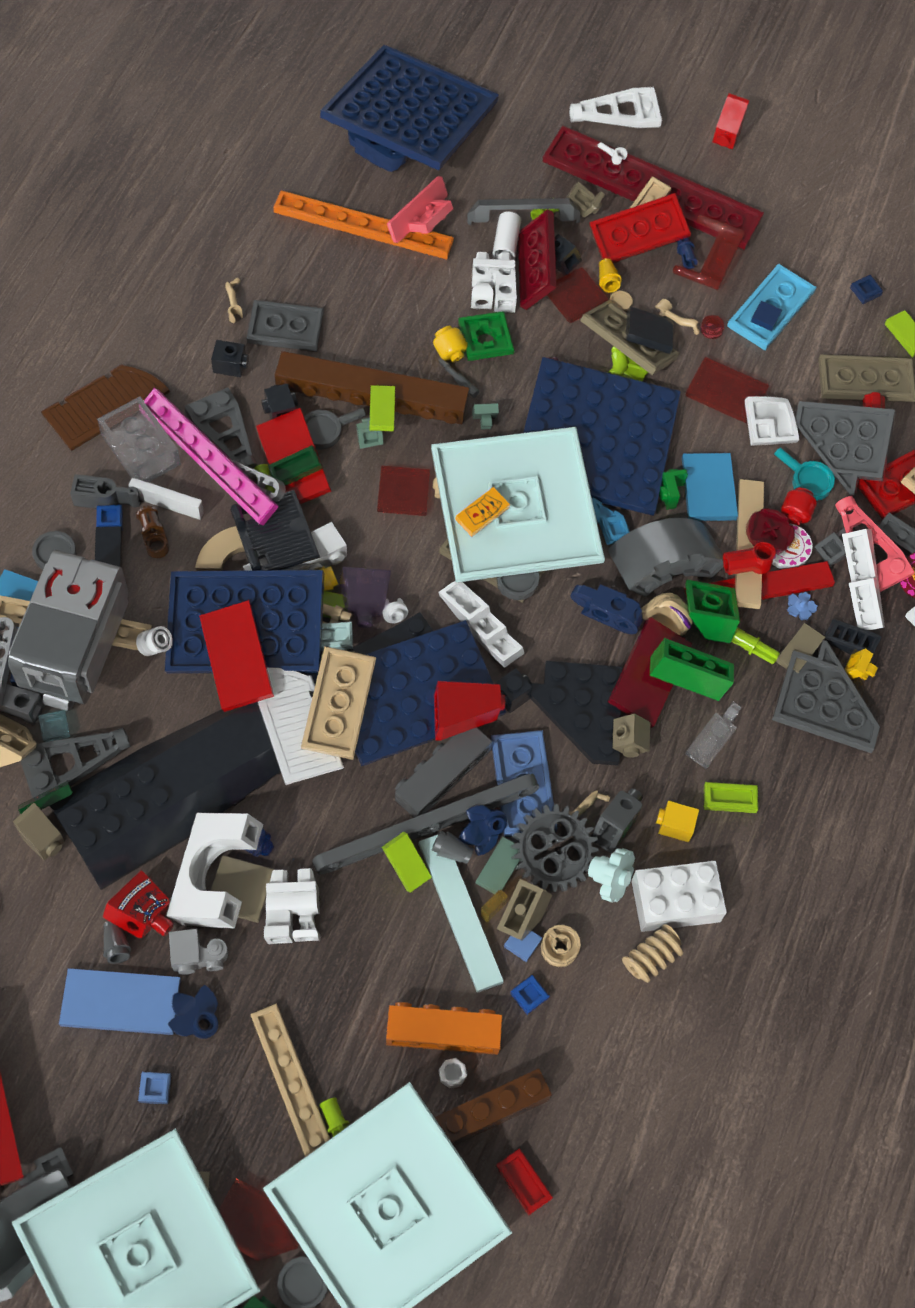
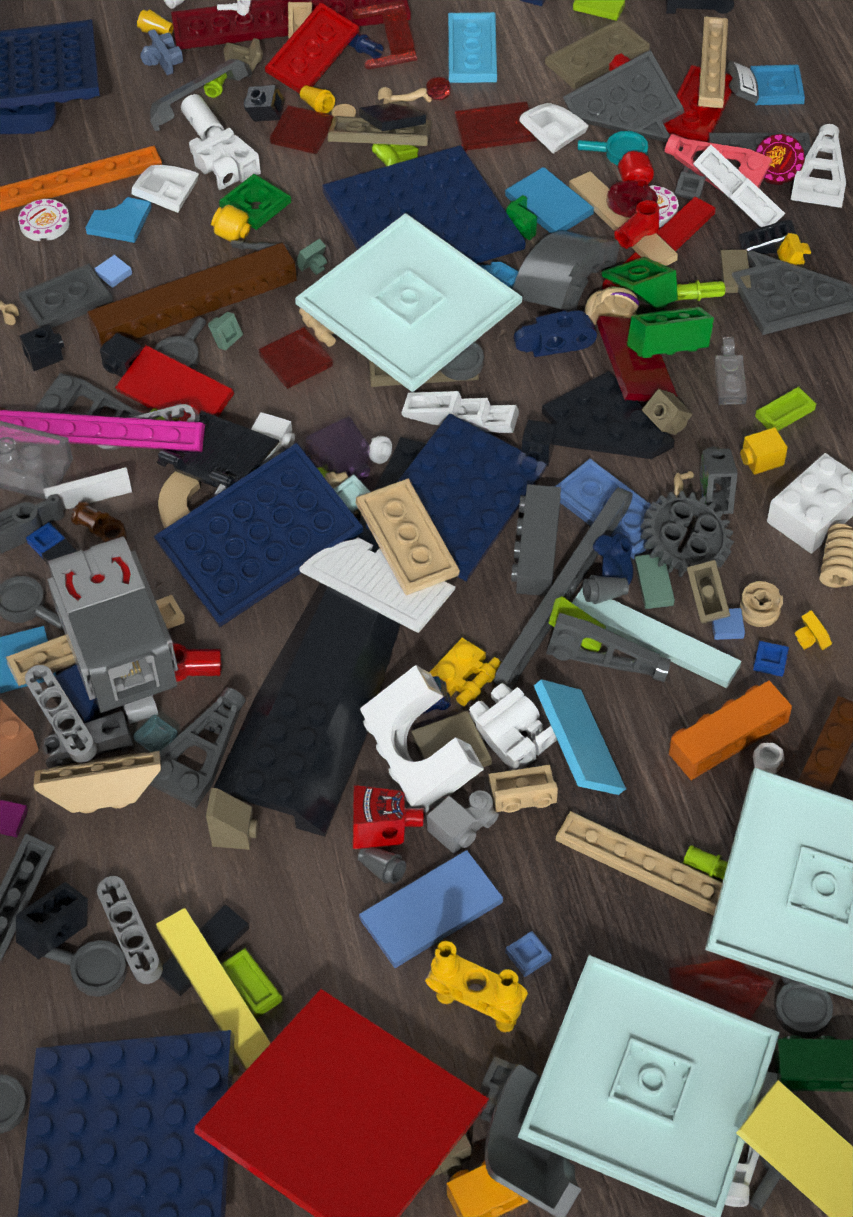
camera: 30 degrees left, 10 degrees down
(49, 797) = (215, 779): dark green tile -> none
(73, 1072) = (453, 975): none -> yellow piece
(122, 689) = (196, 662): none -> red piece
(154, 641) = (192, 598): white wheel -> none
(191, 1011) = (509, 868): dark blue plate -> none
(236, 656) = (279, 561): red tile -> none
(257, 960) = (523, 788): none -> tan bracket
(296, 466) = (187, 388): dark green tile -> none
(297, 829) = (459, 665): none -> yellow plate
(323, 248) = (44, 219): none -> white tile
(327, 953) = (579, 737): none -> medium azure tile
(336, 326) = (113, 271): none -> light blue tile
(377, 287) = (121, 222): none -> dark azure tile
(382, 408) = (223, 299): lime tile -> none
(389, 870) = (567, 641): none -> dark grey plate
(422, 211) = (111, 139): coral bracket -> none
(431, 278) = (165, 185): none -> white plate
(465, 707) = (515, 472): red slope -> none
(482, 511) = (389, 320): light orange tile -> none
(493, 905) = (679, 610): clear yellow tile -> none
(517, 155) = (161, 51): none -> sand blue hips
(537, 259) = (248, 116): dark red tile -> none
(542, 127) = (150, 20): none -> yellow cone
(577, 1000) = (812, 632): none -> yellow tile
(613, 873) = (752, 518): light aqua plant -> none
(766, 315) = (477, 52): dark blue tile -> none
(801, 606) = (704, 242): medium blue plant -> none

